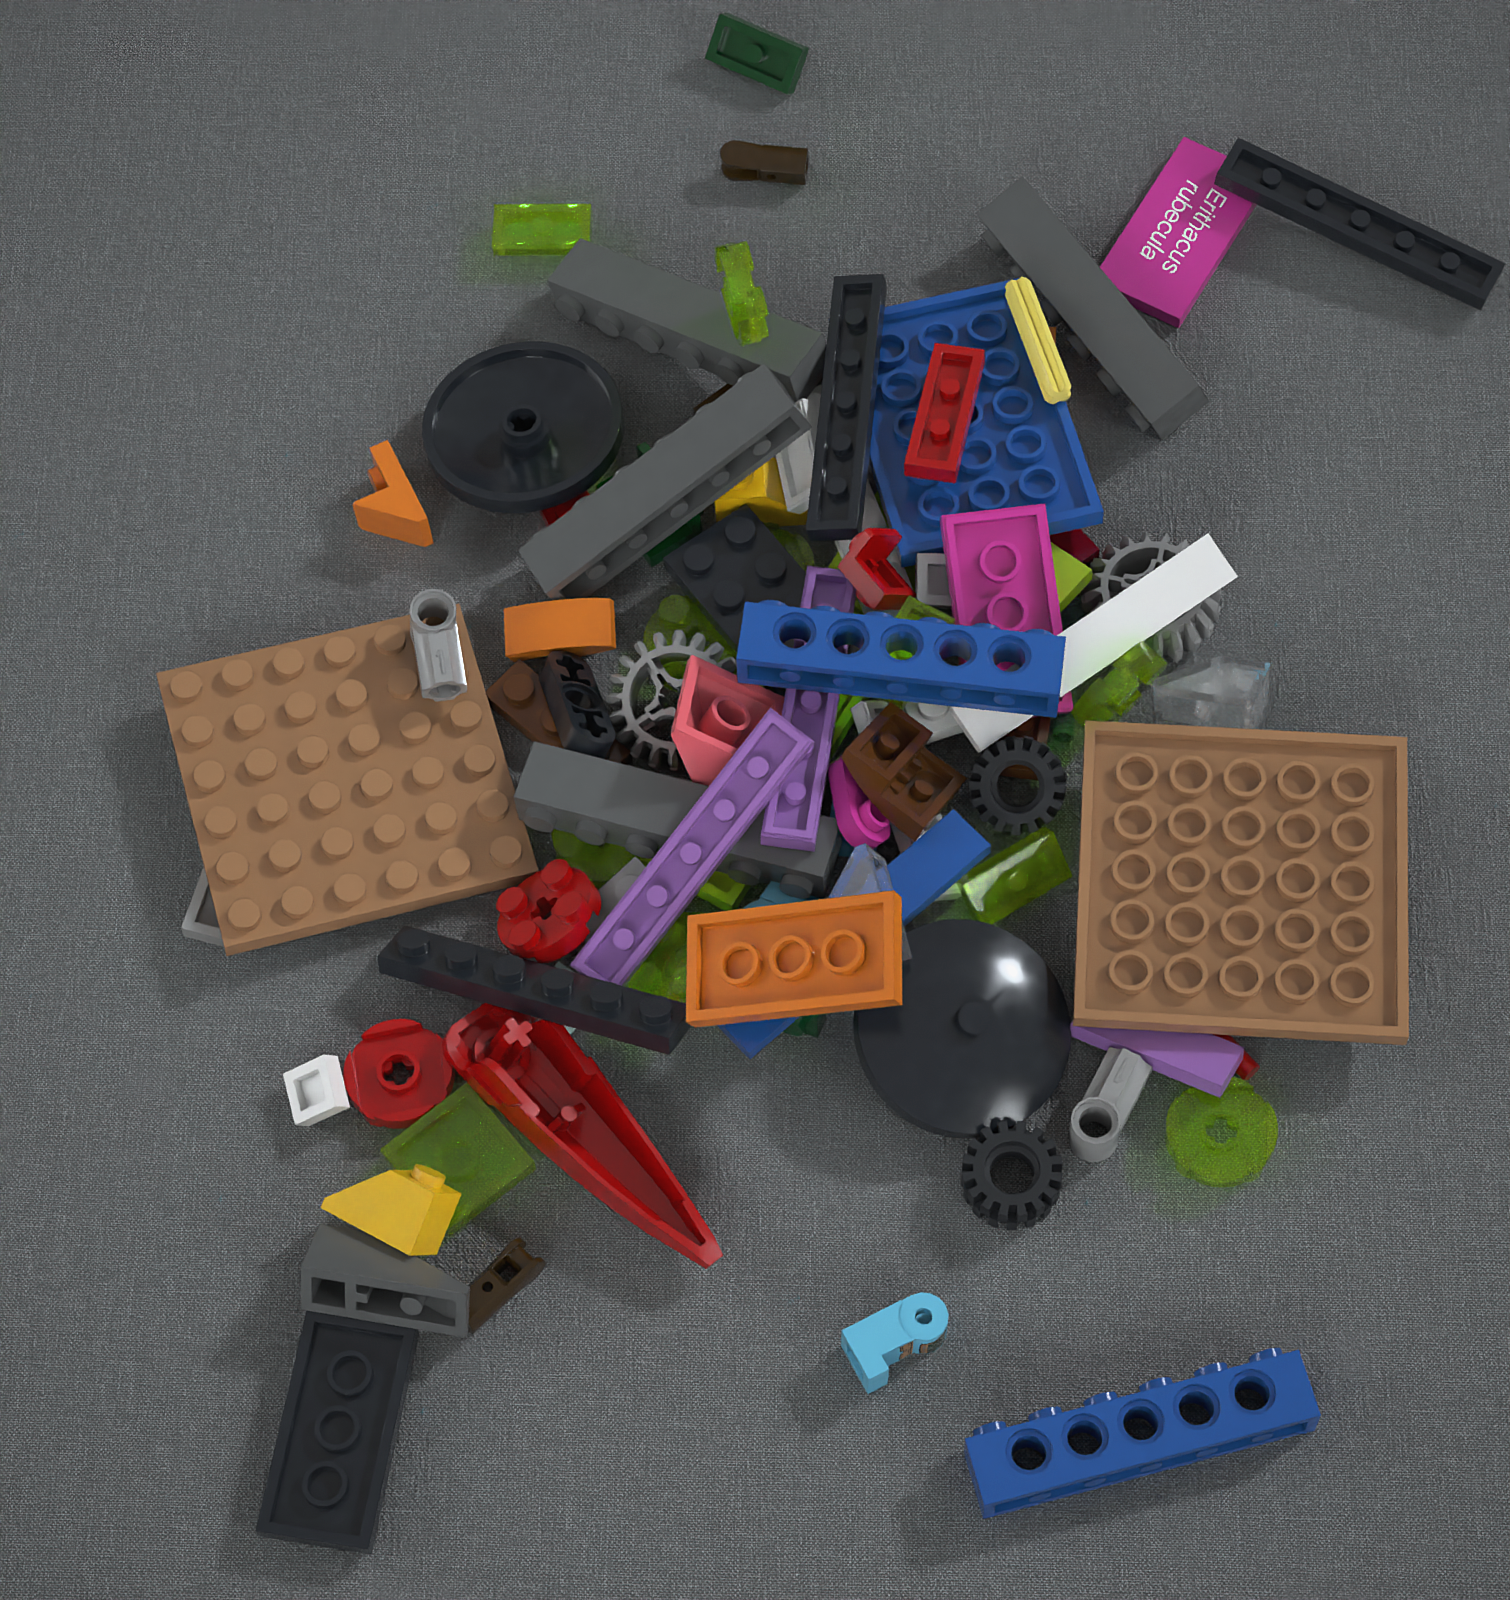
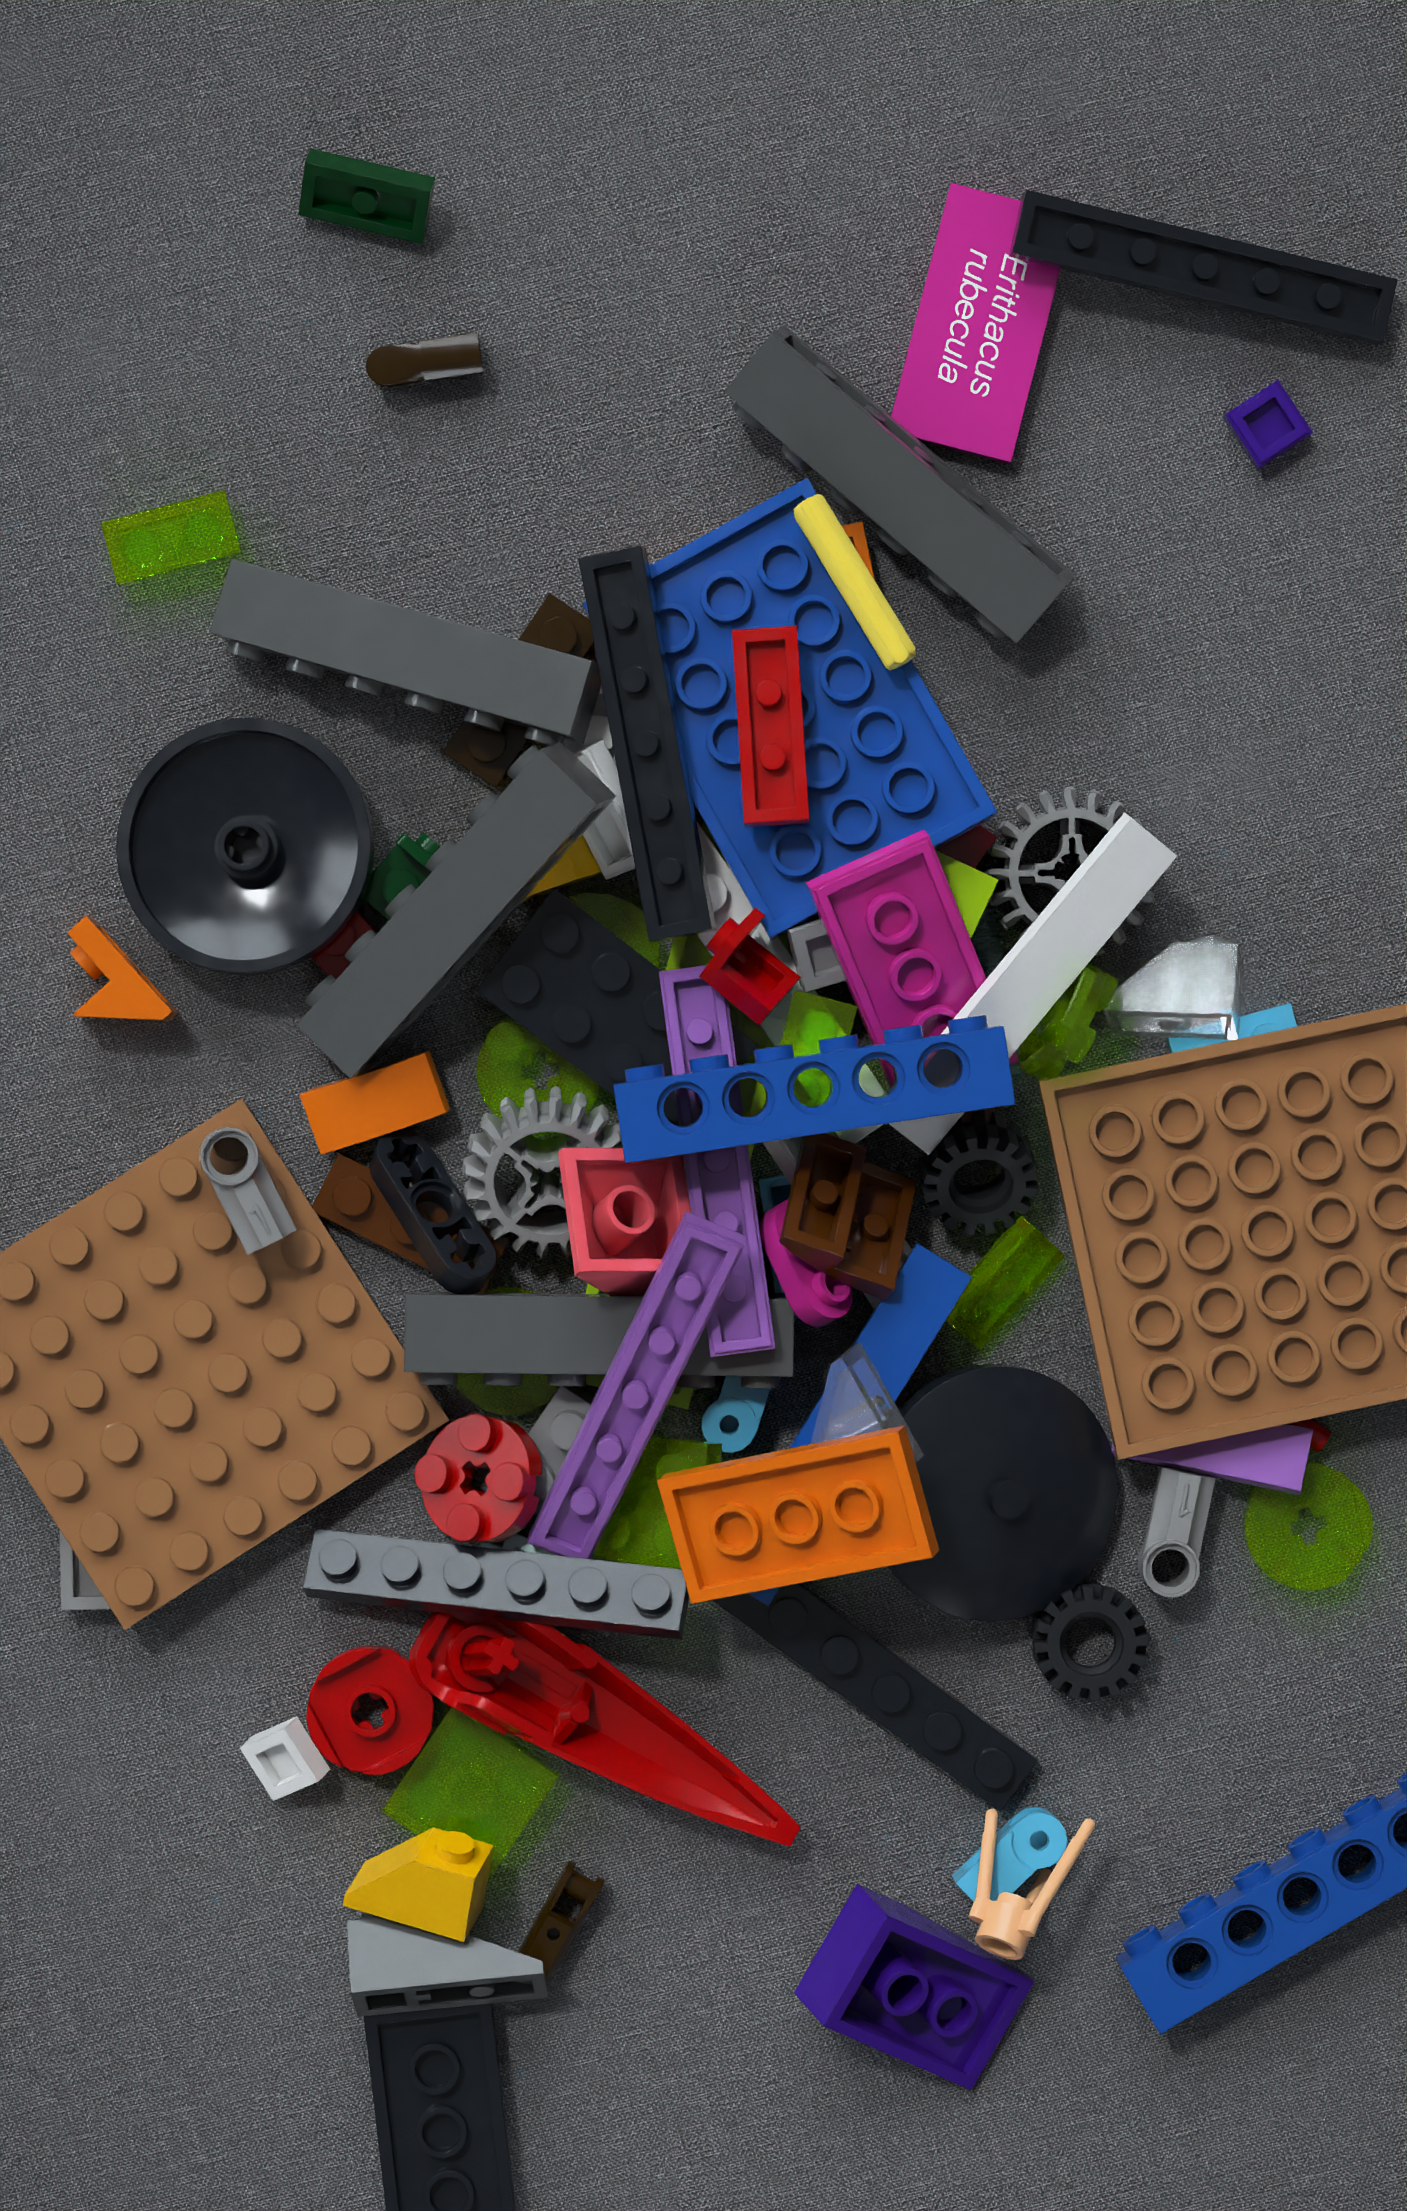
camera: 20 degrees left, 25 degrees up
(742, 300) = (468, 636): clear neon green plate -> none
(781, 1420) = (911, 1988): none -> dark purple slope
(821, 1163) = (888, 1690): none -> black plate
(877, 1363) = (1011, 1919): none -> light nougat plant
(1383, 343) = (1267, 425): none -> dark purple tile

